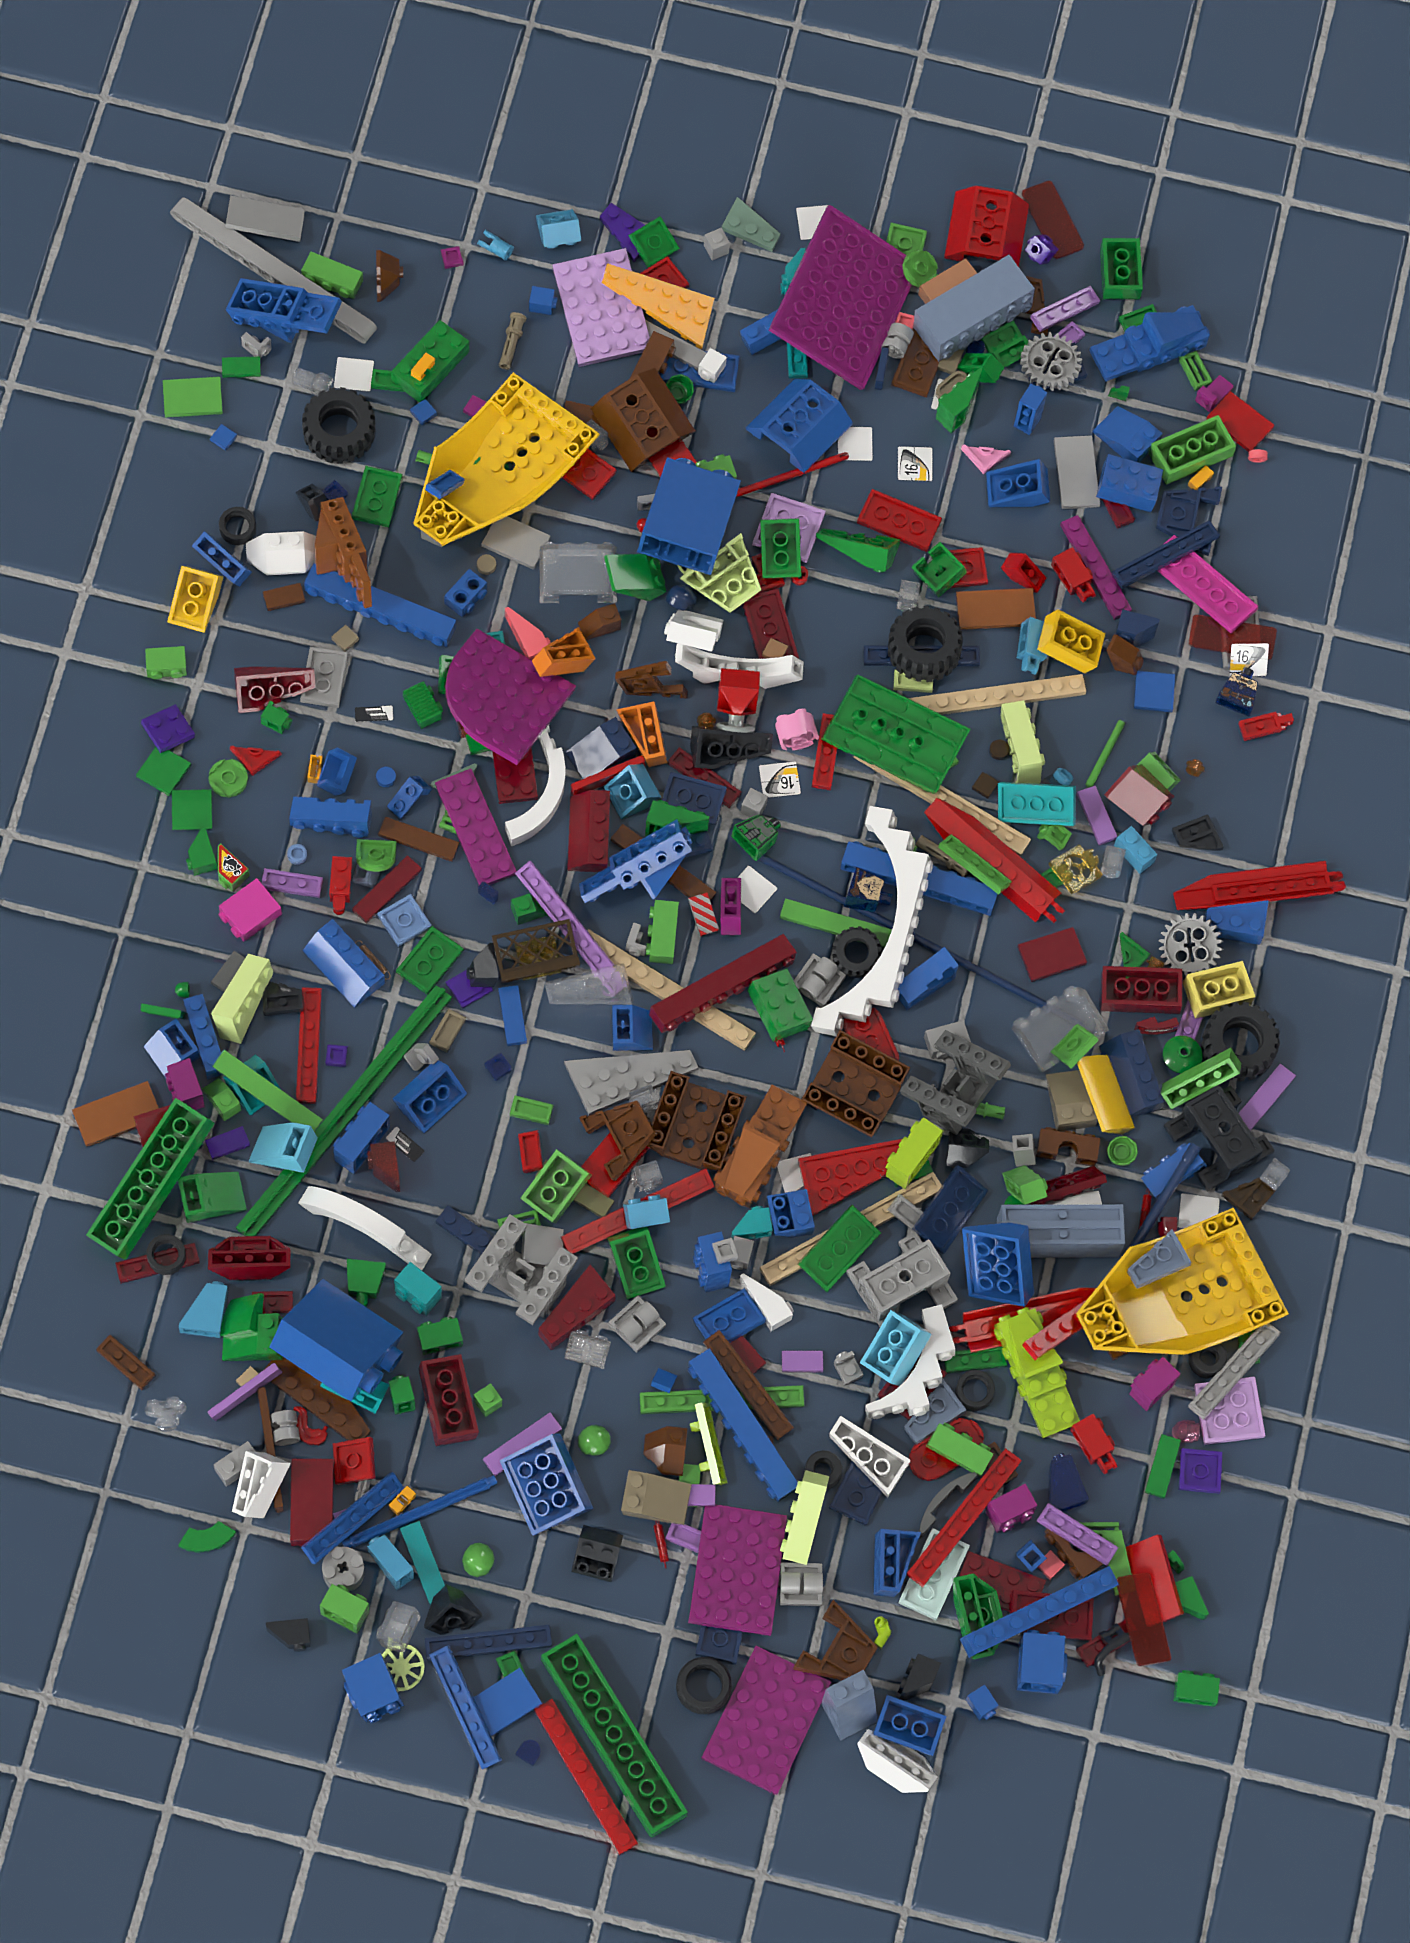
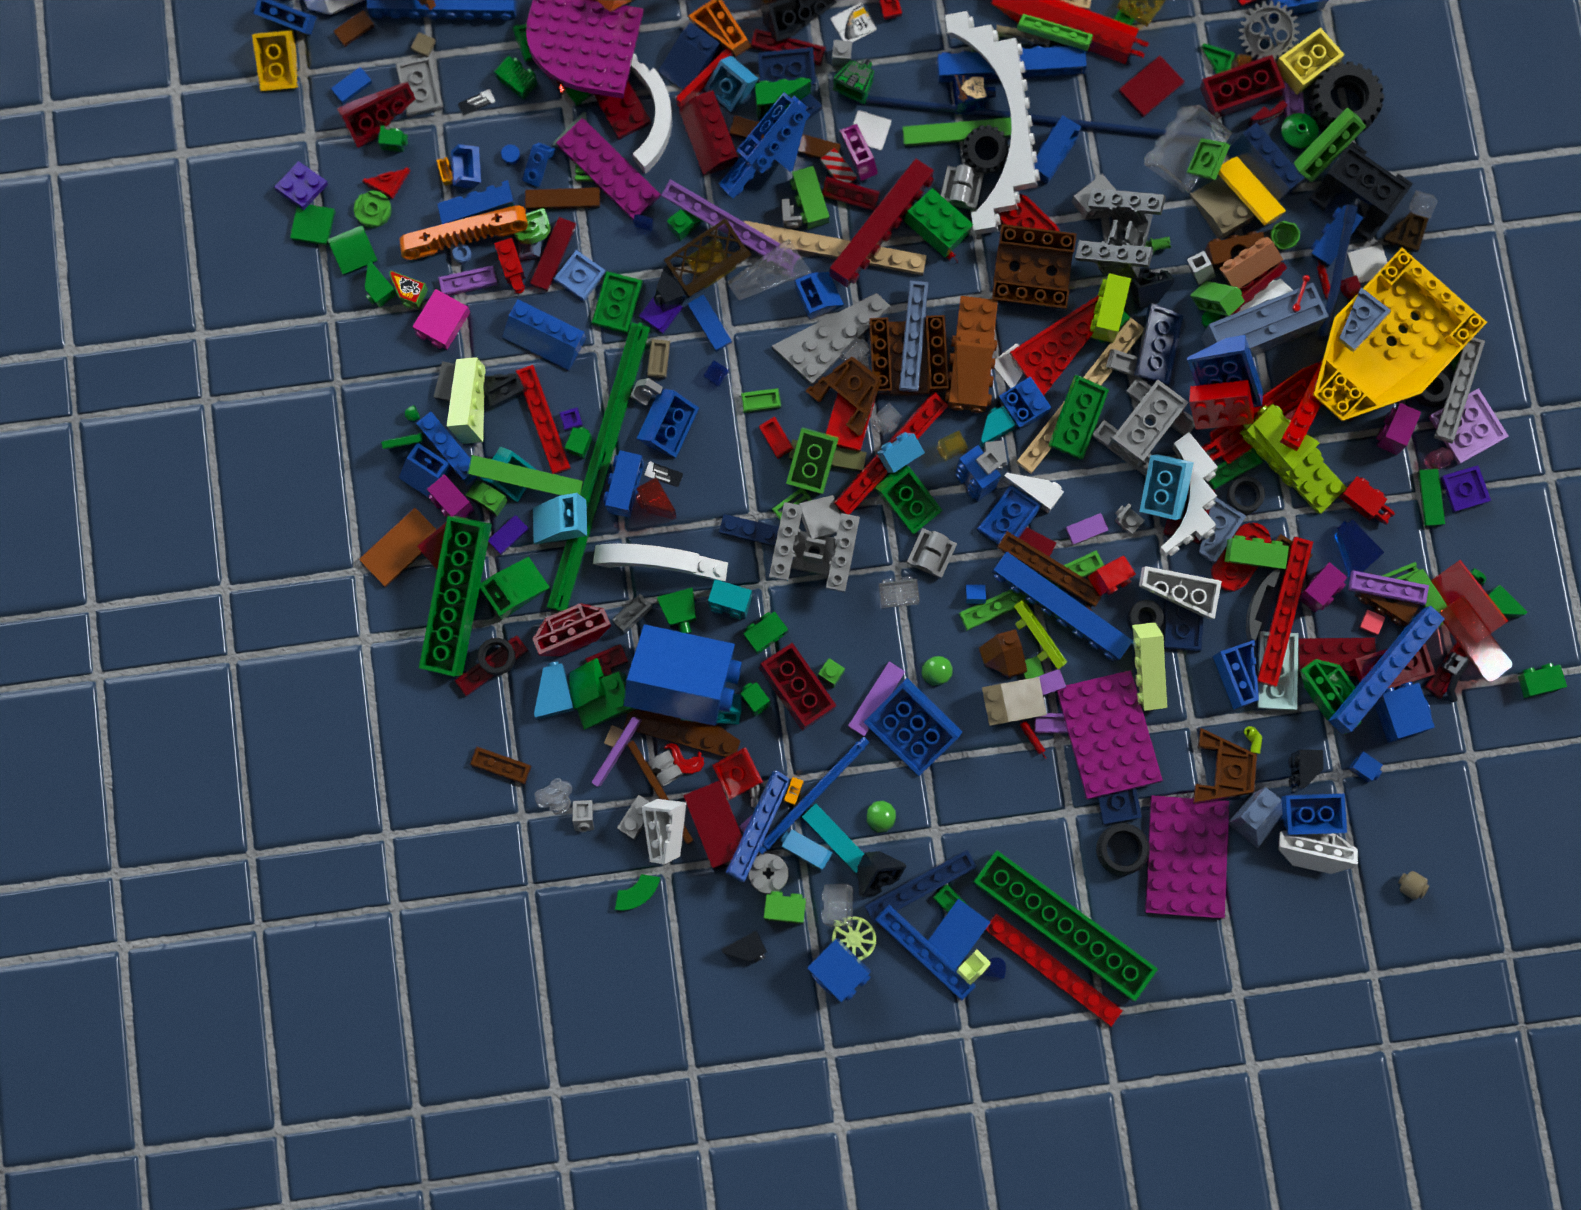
camera: 15 degrees left, 10 degrees up
(166, 662) = (274, 127): bright green brick -> none
(185, 1442) = (583, 815): none -> light grey bracket
(256, 827) = (511, 221): none -> orange gear
(258, 650) = (351, 85): none -> blue tile
(316, 1267) = (632, 614): none -> dark grey hinge
(334, 1080) = (578, 442): none -> green brick
(370, 955) = (567, 320): medium nougat piece -> none
(507, 1741) = (973, 967): none -> yellowish green panel
(578, 1307) = (876, 556): dark red wedge -> none
(597, 1553) = (982, 769): black slope -> none
(700, 1225) = (952, 445): none -> clear yellow brick
(705, 943) = (850, 193): none -> dark red tile
(708, 1106) = (913, 336): none -> sand blue tile
(801, 1584) = (1168, 725): light grey plate -> none
(806, 1415) = (1111, 576): none -> red brick
(980, 1837) = (1413, 885): none -> dark tan head
(983, 1289) = (1221, 404): none -> red brick
(1031, 1555) = (1355, 622): blue brick -> none
(1073, 1164) = (1251, 263): none -> nougat brick
(1096, 1221) = (1296, 307): none -> red hinge
(1266, 1096) = (1385, 136): medium lavender tile -> none

